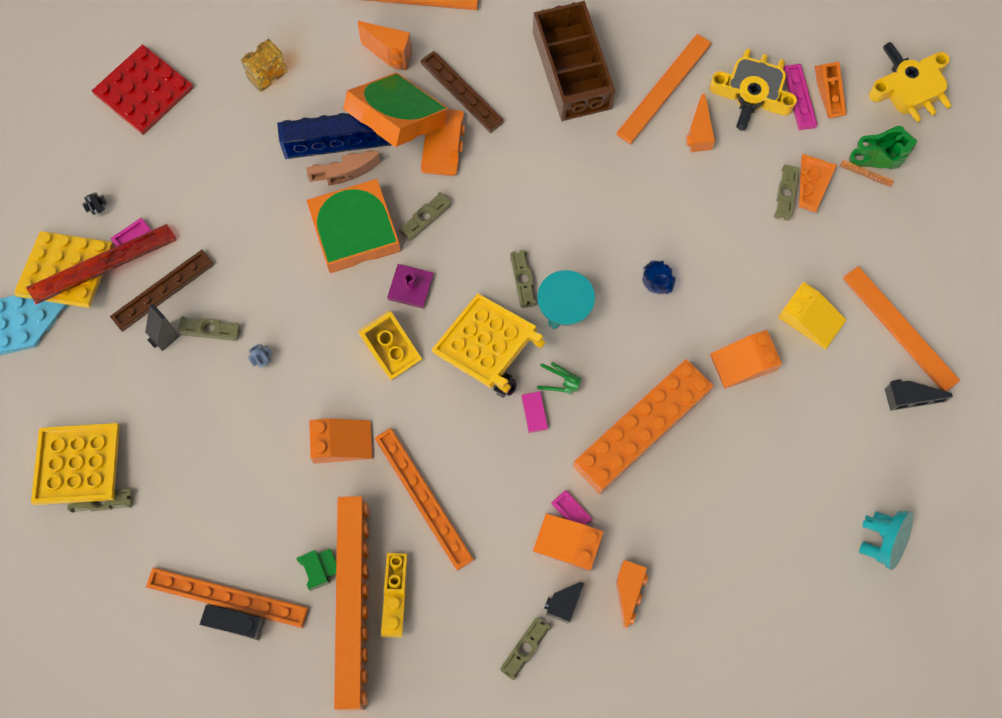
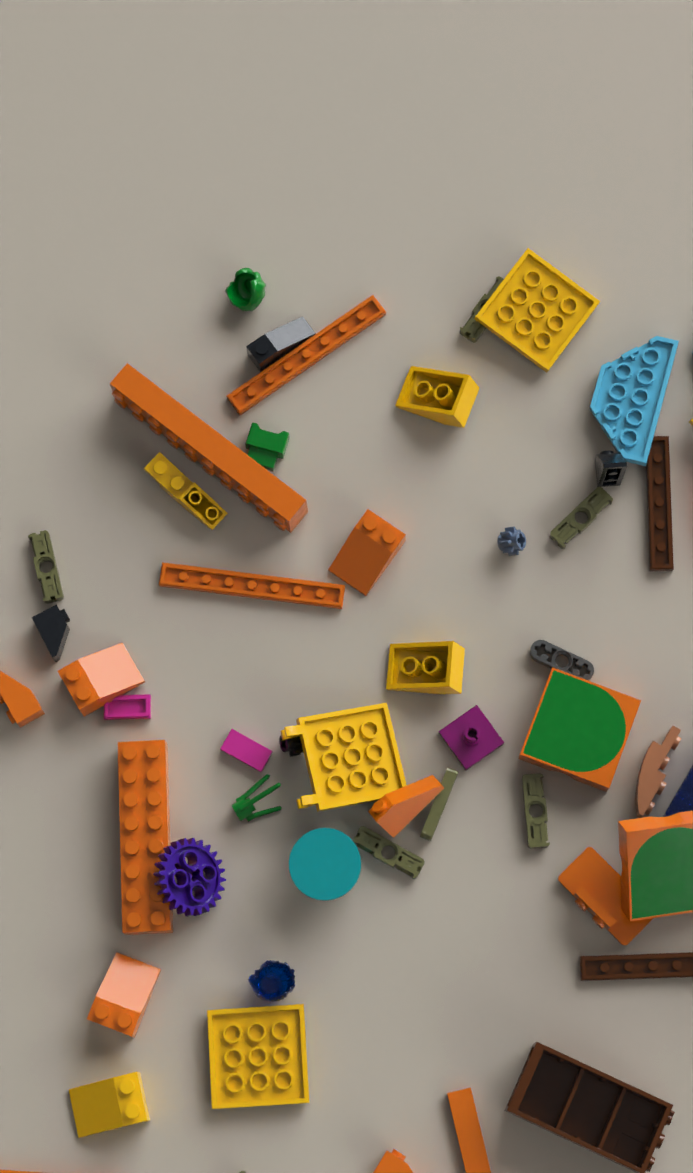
camera: 135 degrees right, 5 degrees up
(97, 356) = (632, 395): none -> medium azure plate
(190, 482) = (438, 395): none -> yellow slope
(208, 678) = (246, 290): none -> green hair
(314, 277) = (559, 651): none -> dark grey beam
(468, 270) = (439, 805): none -> olive piece
(485, 286) = (404, 804): none -> orange slope
(657, 370) = (189, 877): none -> dark purple gear
(707, 256) = (258, 1056): none -> yellow plate

